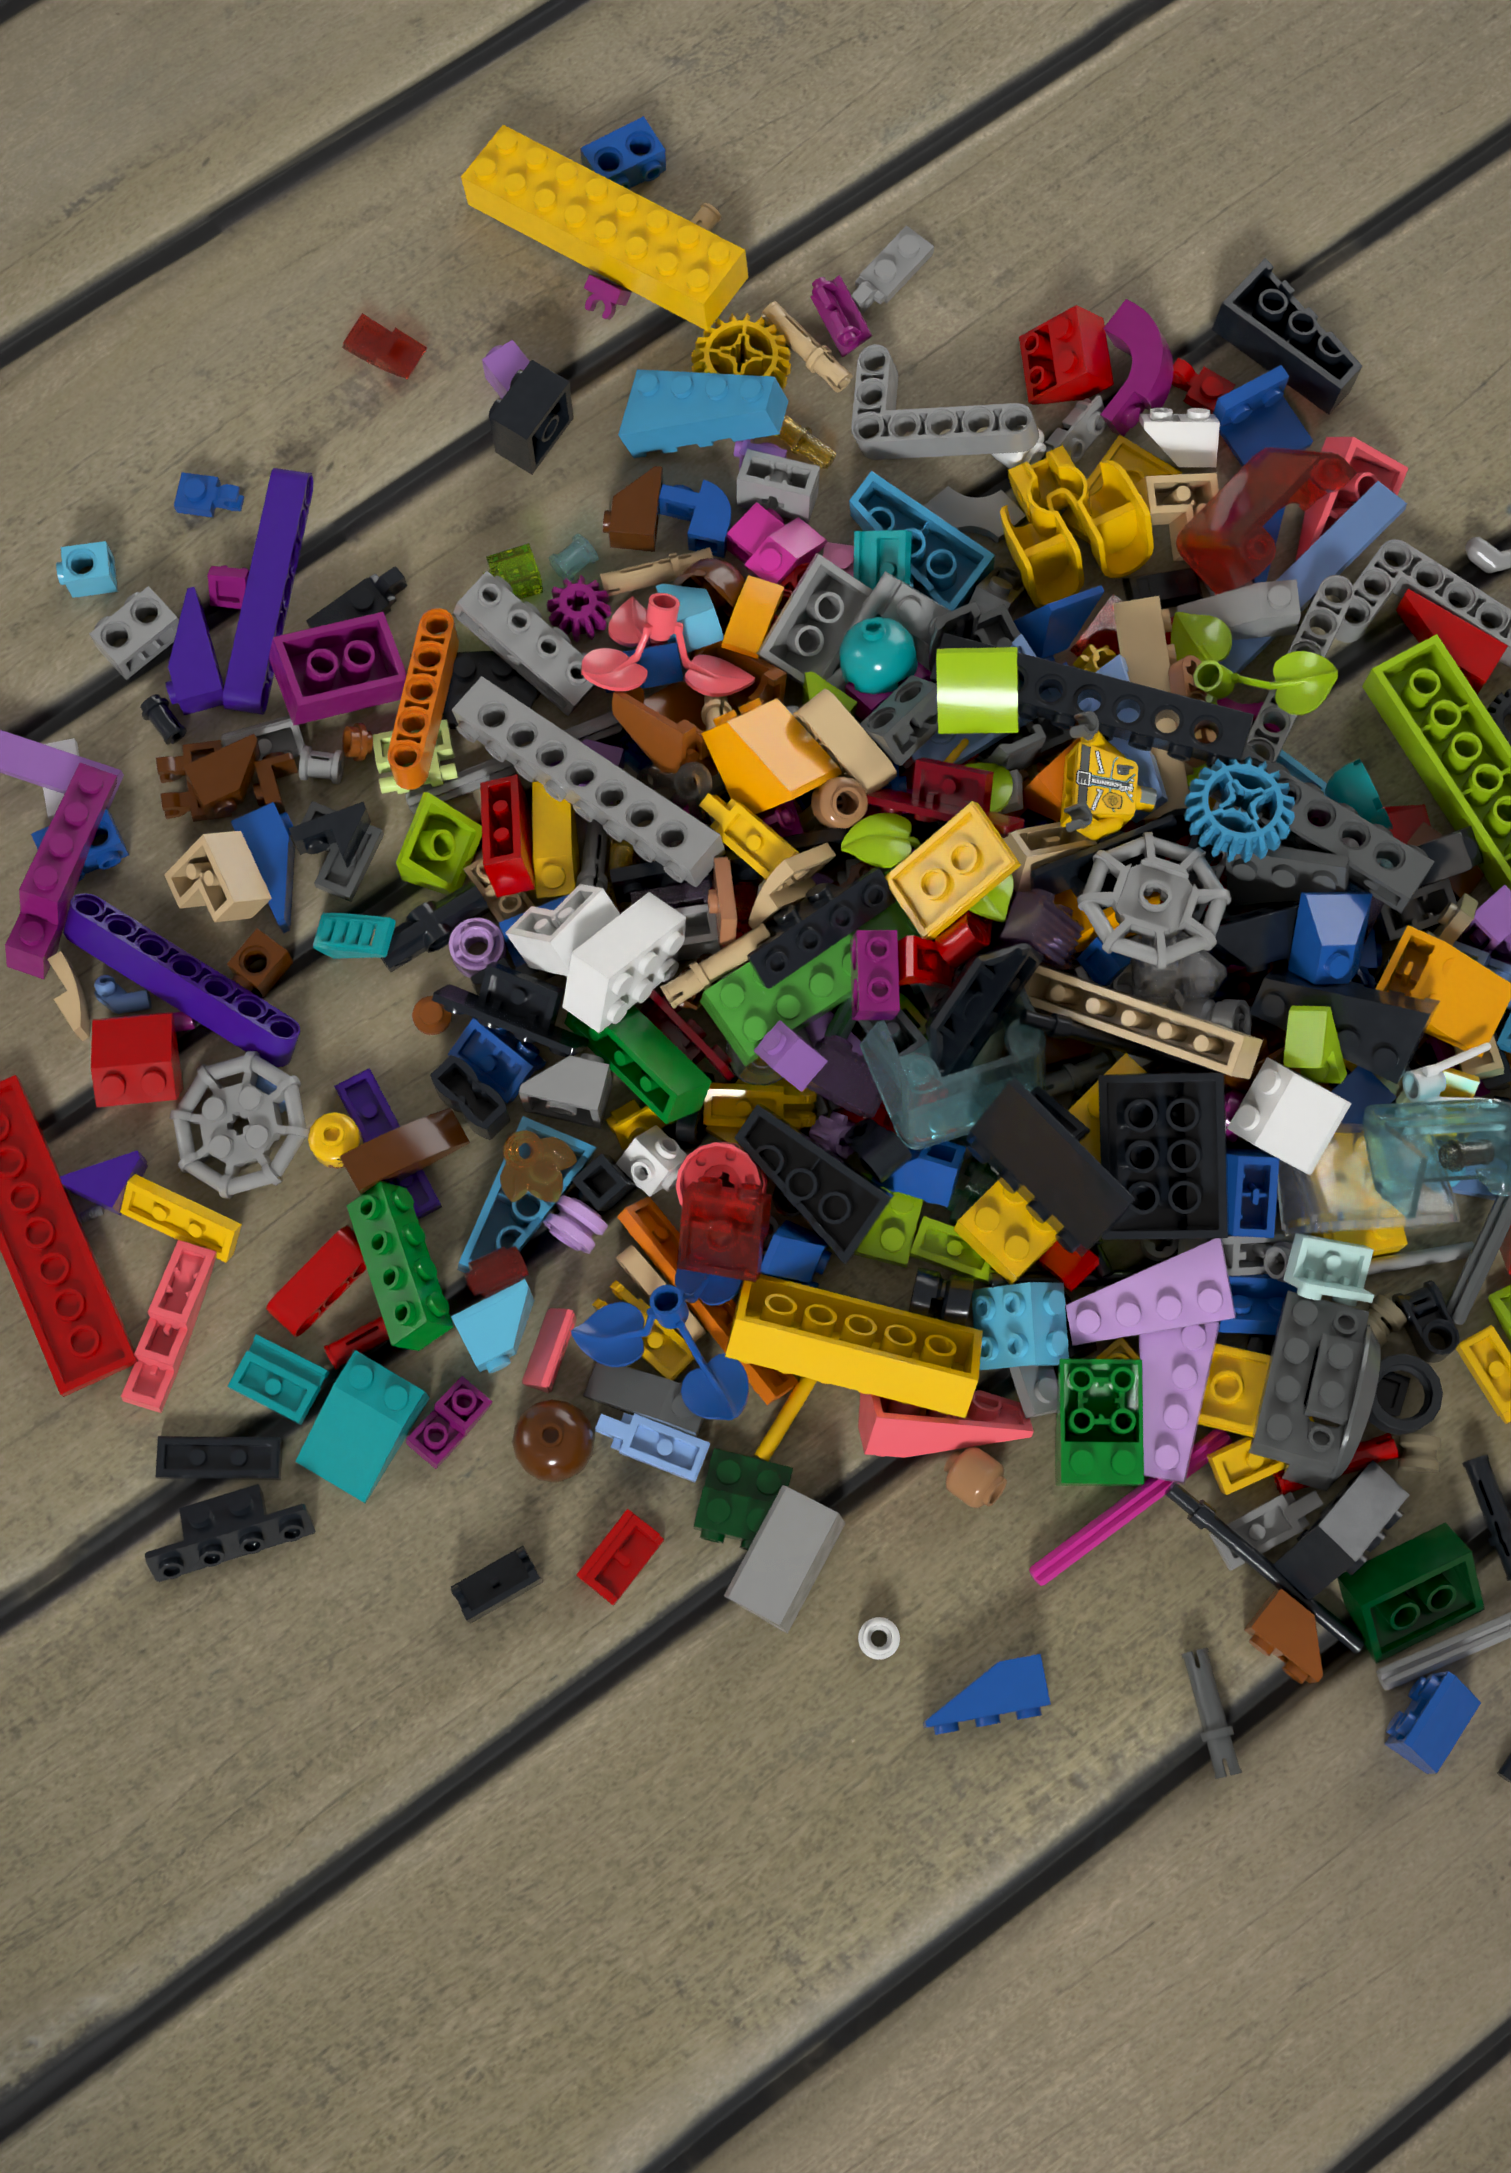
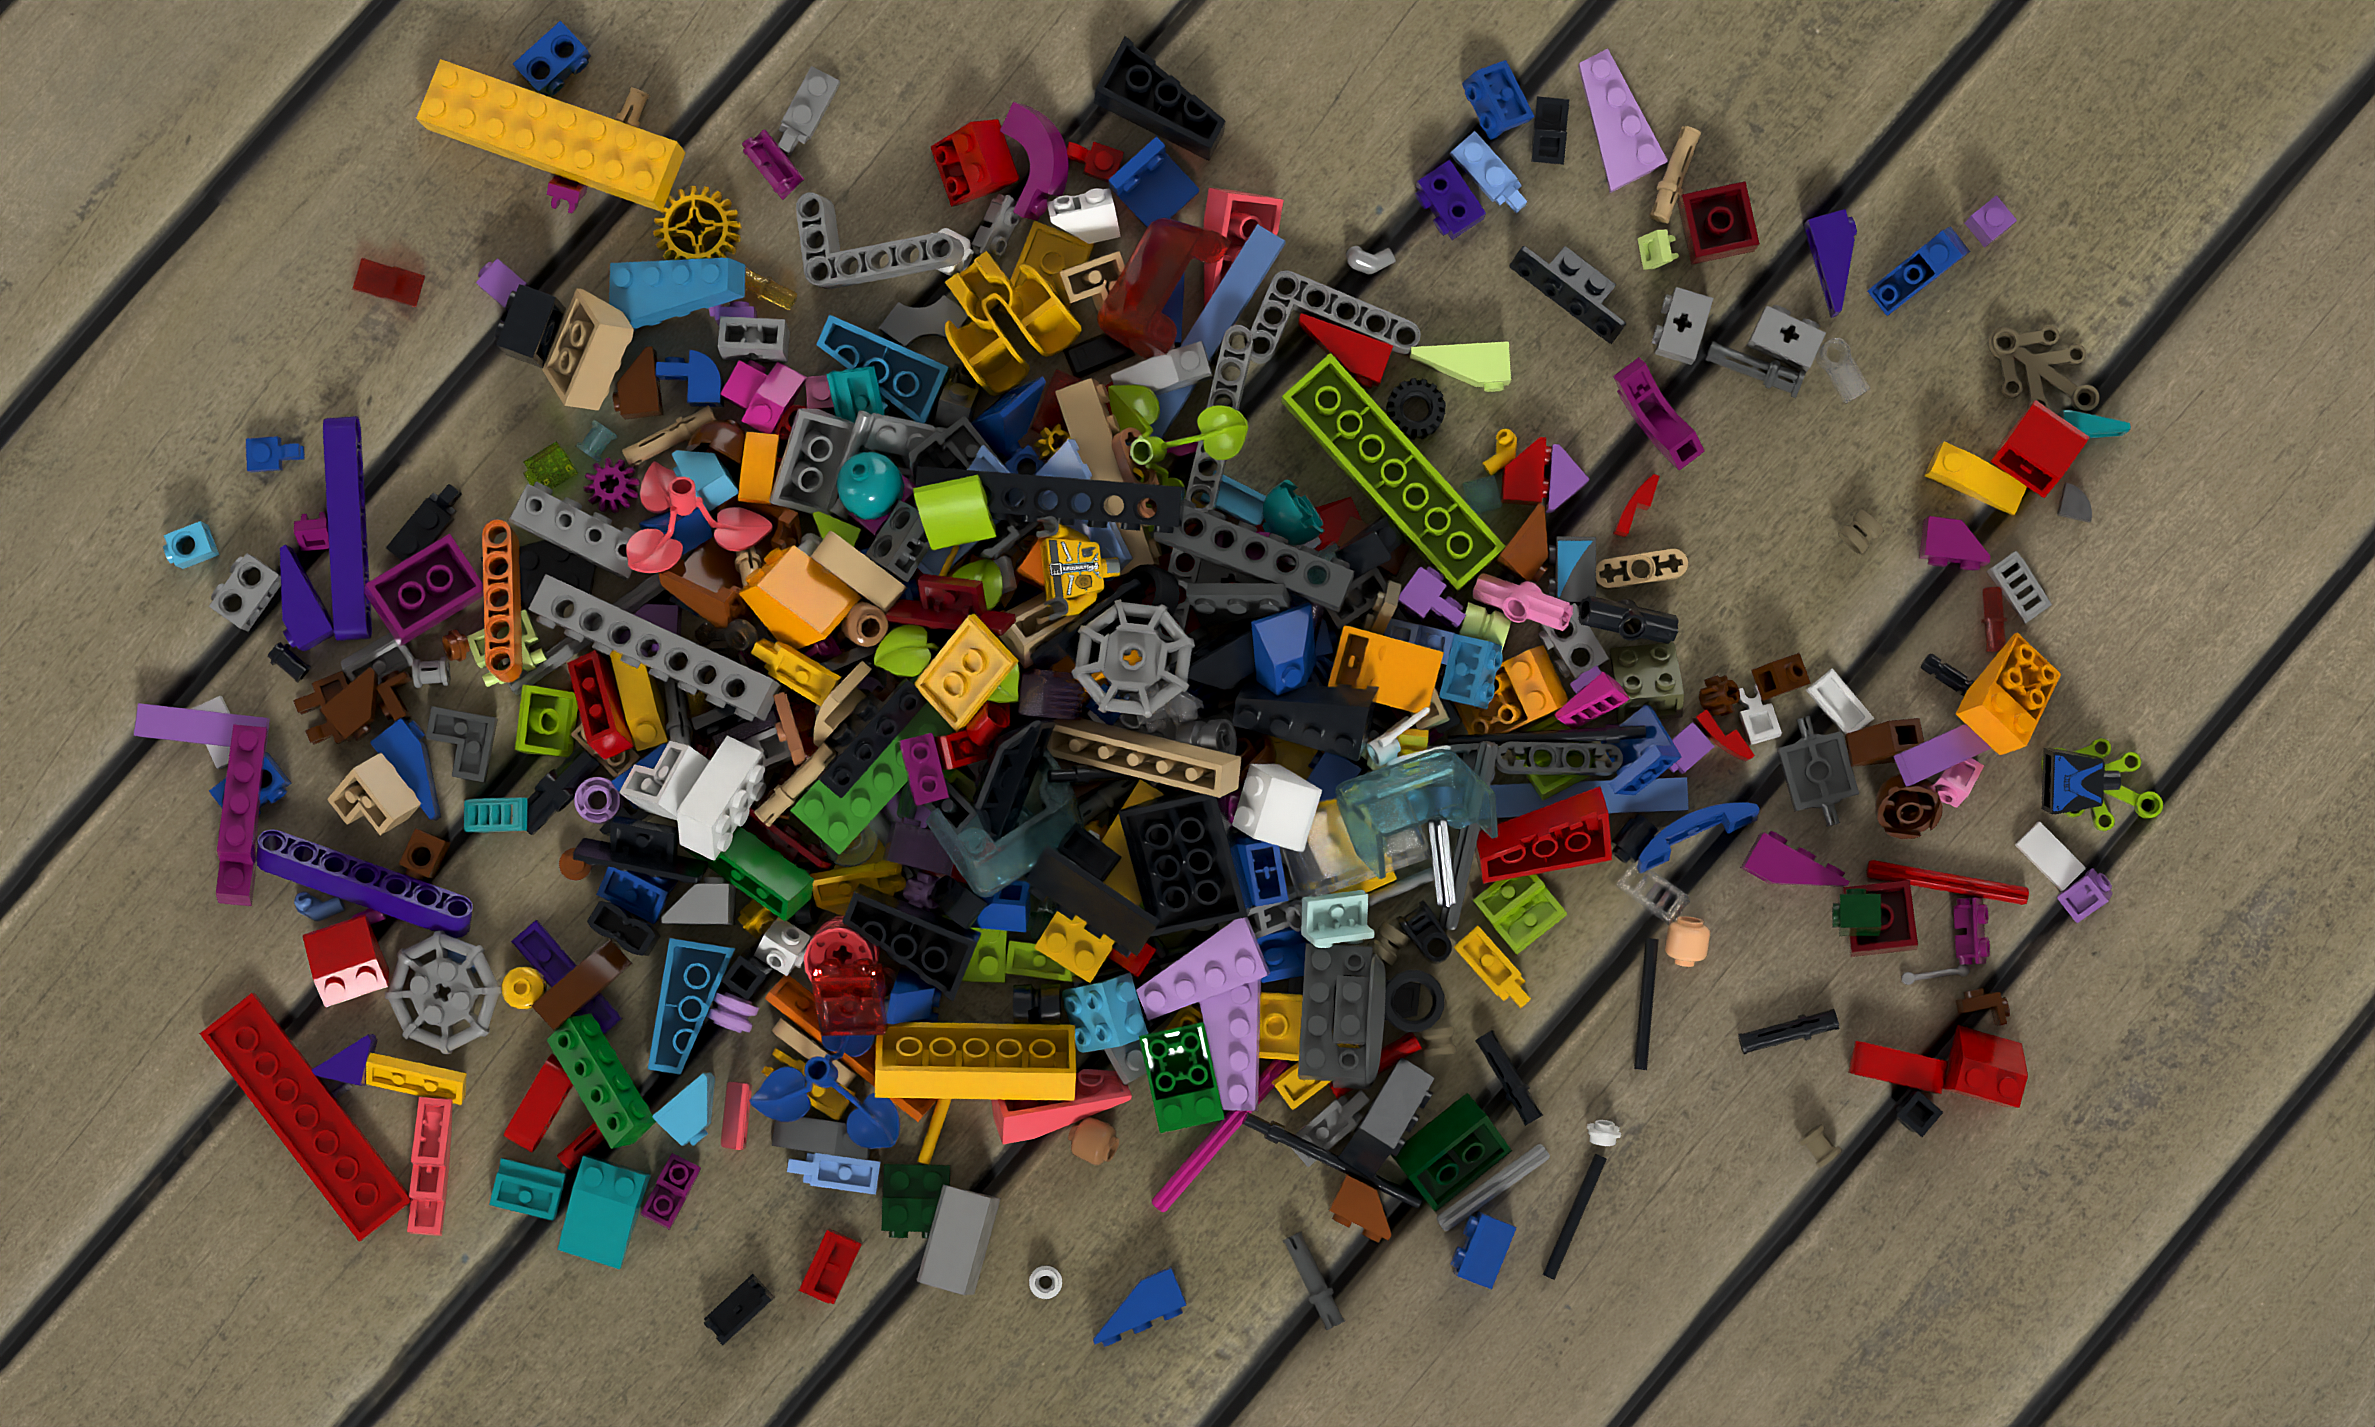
camera: 10 degrees left, 10 degrees up
(73, 1001) = (282, 924): tan slope -> none
(219, 1458) = (497, 1260): black tile -> none
(226, 1530) = (517, 1315): black bracket -> none
(342, 826) = (465, 728): black slope -> none
(495, 1271) = (678, 1072): clear red brick -> none
(537, 1172) = (693, 982): clear orange plate -> none
(553, 1440) = (756, 1186): reddish brown cylinder -> none
(589, 454) = (587, 351): none -> tan slope
(790, 1055) = (871, 847): medium lavender brick -> none
(817, 356) = (760, 207): tan pin -> none
(1248, 789) = (1198, 556): dark azure gear -> none
(1314, 1044) = (1285, 746): lime slope -> none
(1457, 1155) = (1417, 806): clear smoke pin -> none
(1469, 1232) = (1442, 861): none -> axle

